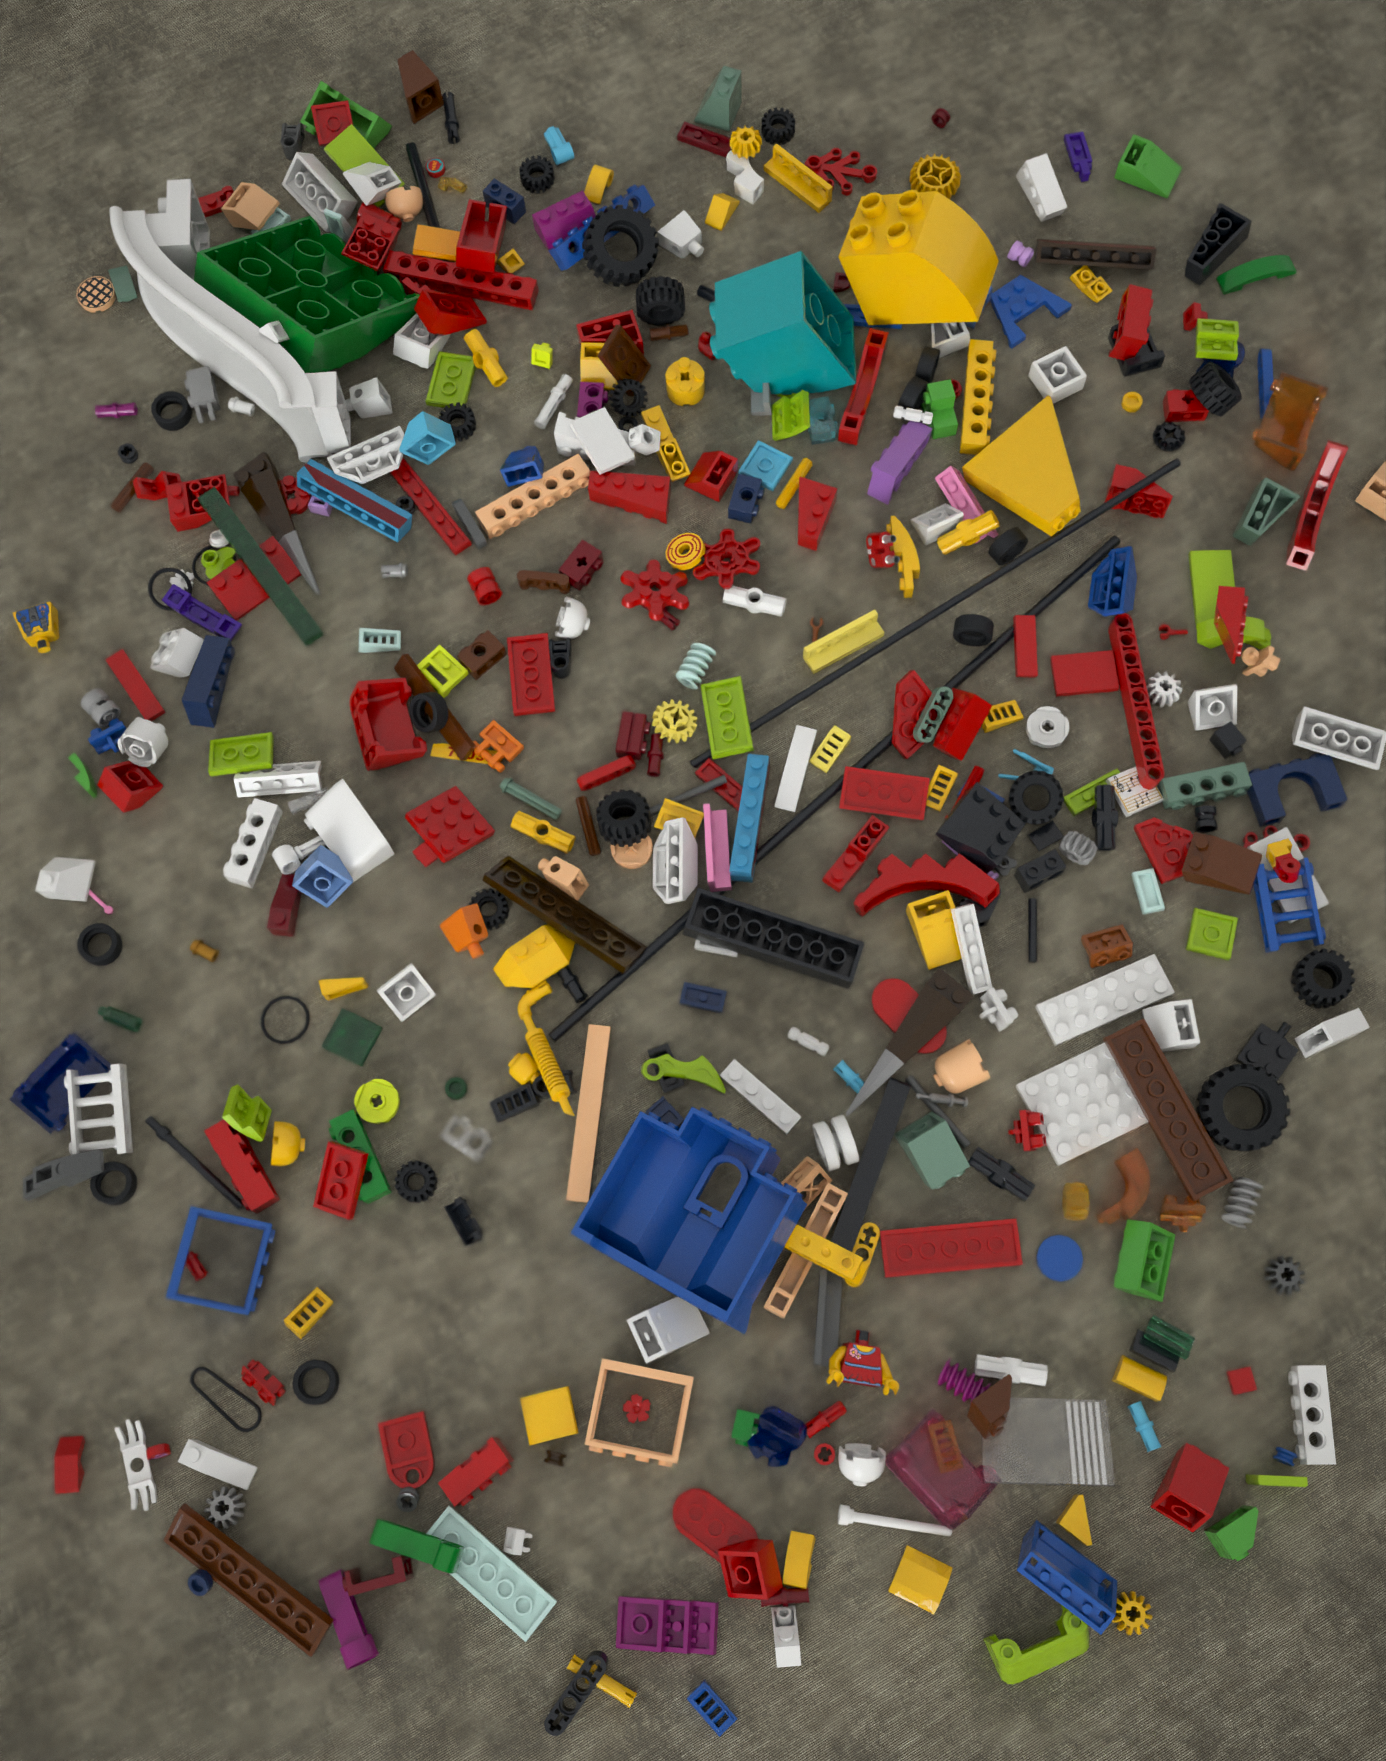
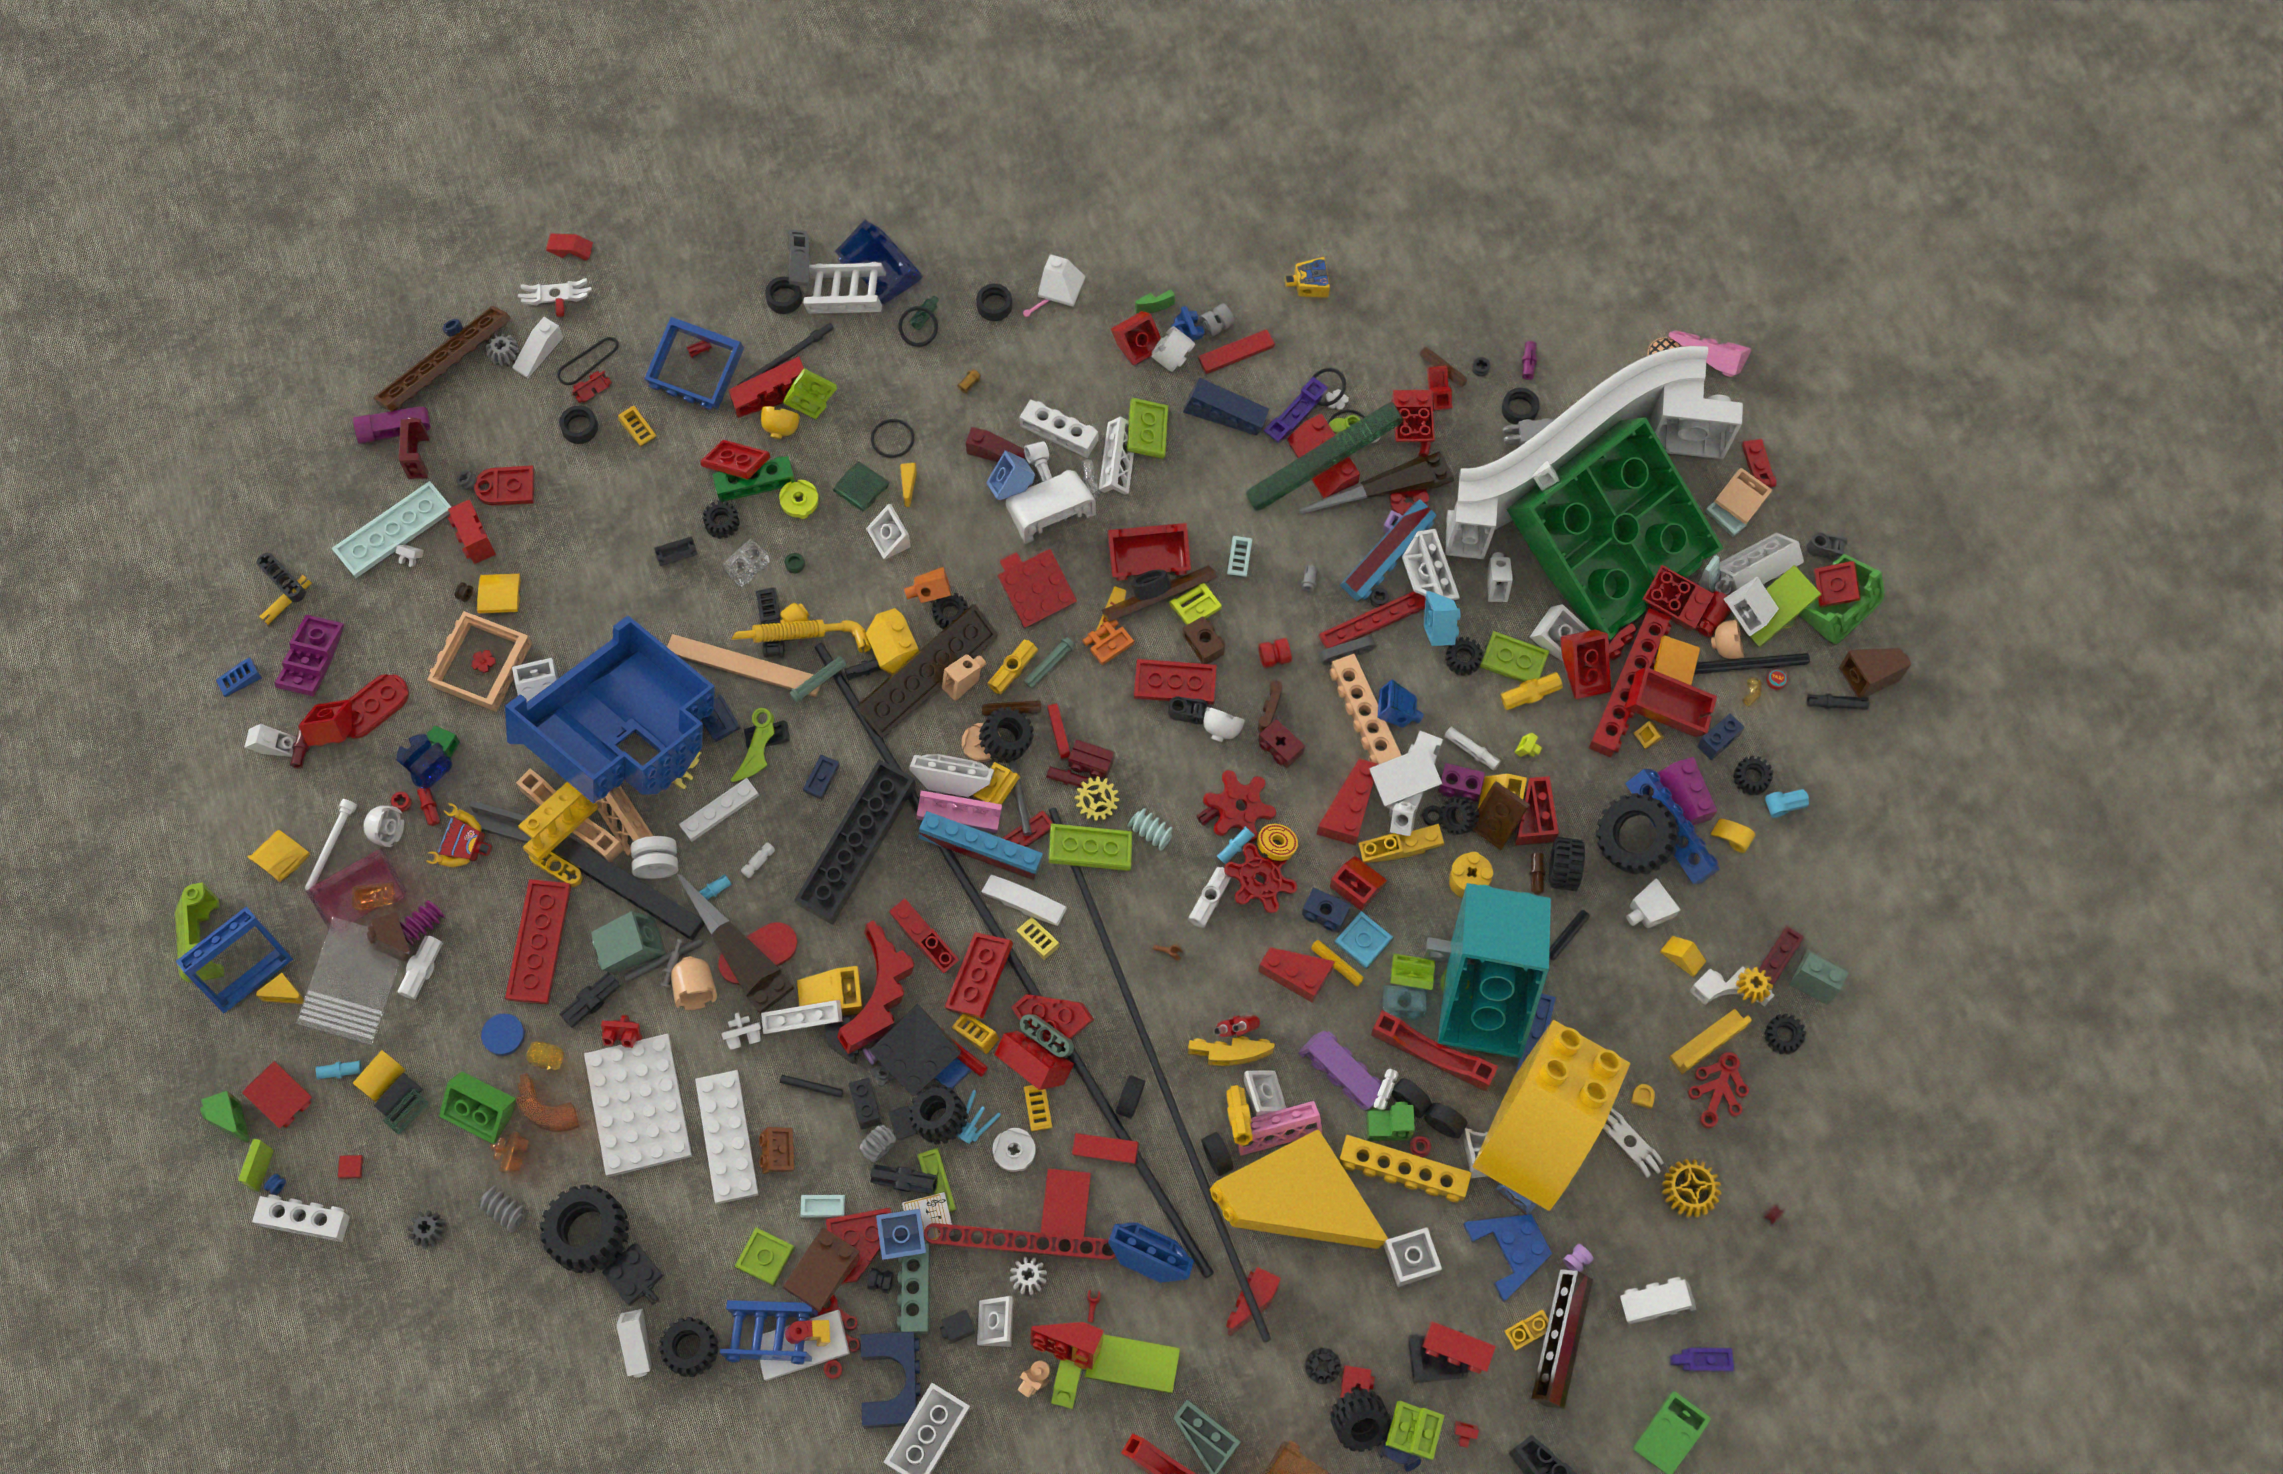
camera: 95 degrees right, 5 degrees down
(93, 241) = (1723, 357): none -> bright pink wedge
(140, 999) = (901, 330): none -> black tyre
(177, 652) = (1259, 385): white slope -> none
(350, 210) = (1724, 585): none -> light grey axle
(417, 1545) = (425, 479): green beam -> none
(594, 1025) = (817, 679): none -> sand green axle
(697, 586) = (1235, 845): none -> medium azure pin
(798, 1560) = (323, 761): yellow slope -> none
(843, 642) = (1147, 973): light yellow fence -> none
(1131, 402) = (1373, 1337): yellow tile -> none
(1135, 1621) = (198, 1010): yellow gear -> none
(1164, 801) = (901, 1234): none -> medium blue slope
(1168, 1110) = (603, 1158): reddish brown plate -> none
(1173, 1025) = (681, 1187): white slope -> none

